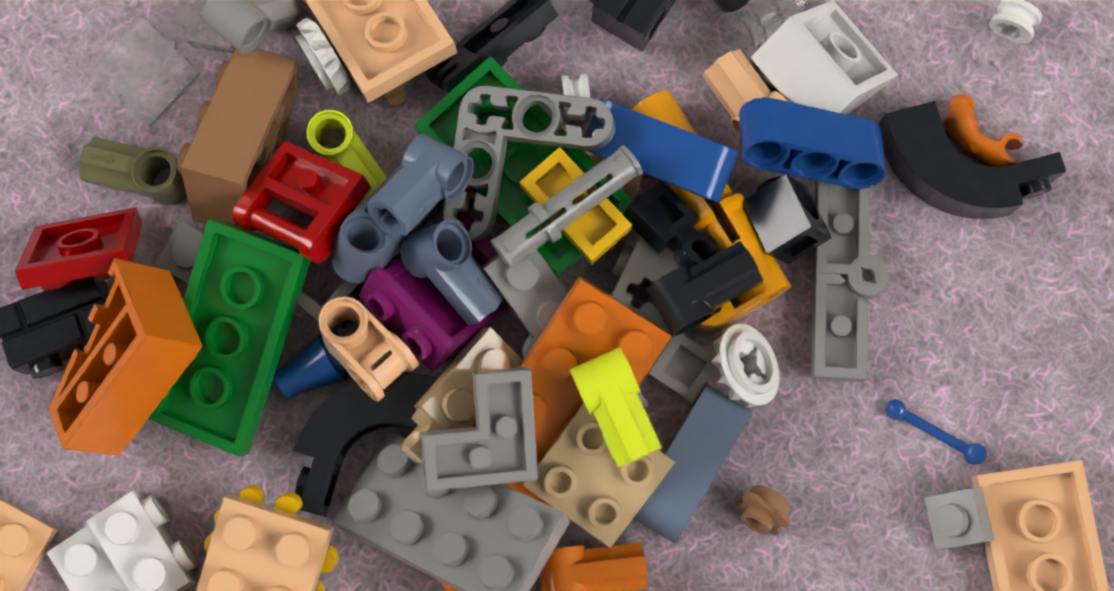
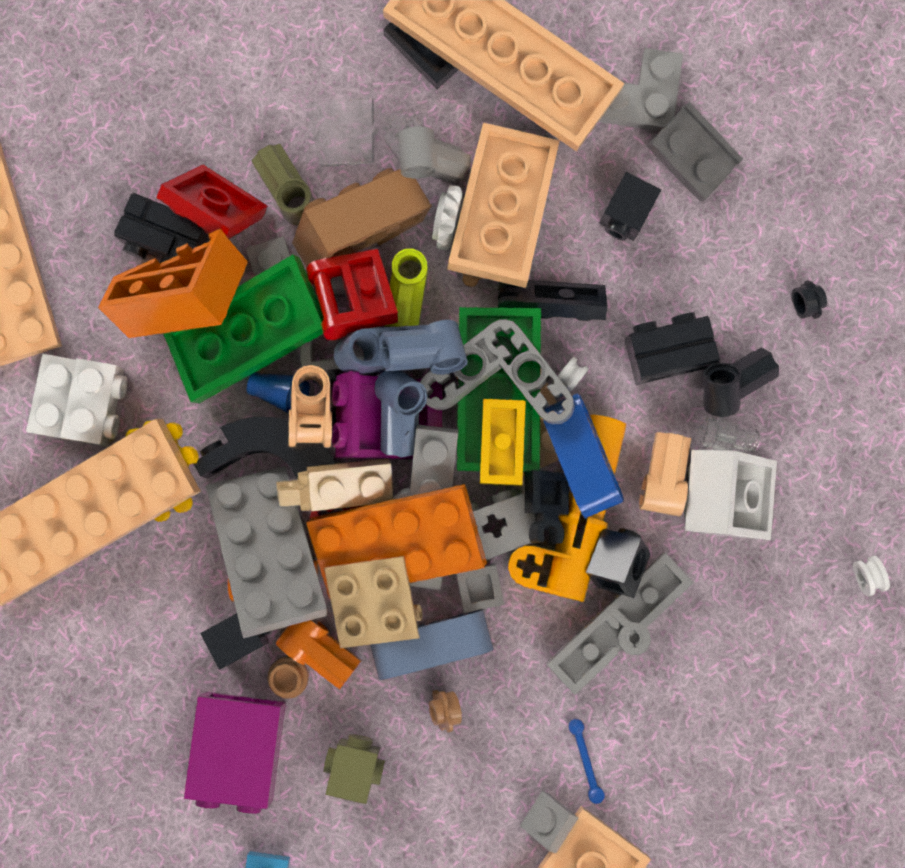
camera: 45 degrees right, 5 degrees up
(499, 446) = (323, 535): light grey plate -> none
(612, 396) = (415, 569): neon yellow piece -> none
(618, 169) = (544, 445): light grey pin -> none
(692, 294) = (520, 555): black piece -> none
(759, 363) = (523, 628): white gear -> none
(811, 143) = (674, 535): blue beam -> none
(949, 181) = (733, 623): black arch -> none
(965, 132) = (775, 610): orange piece -> none

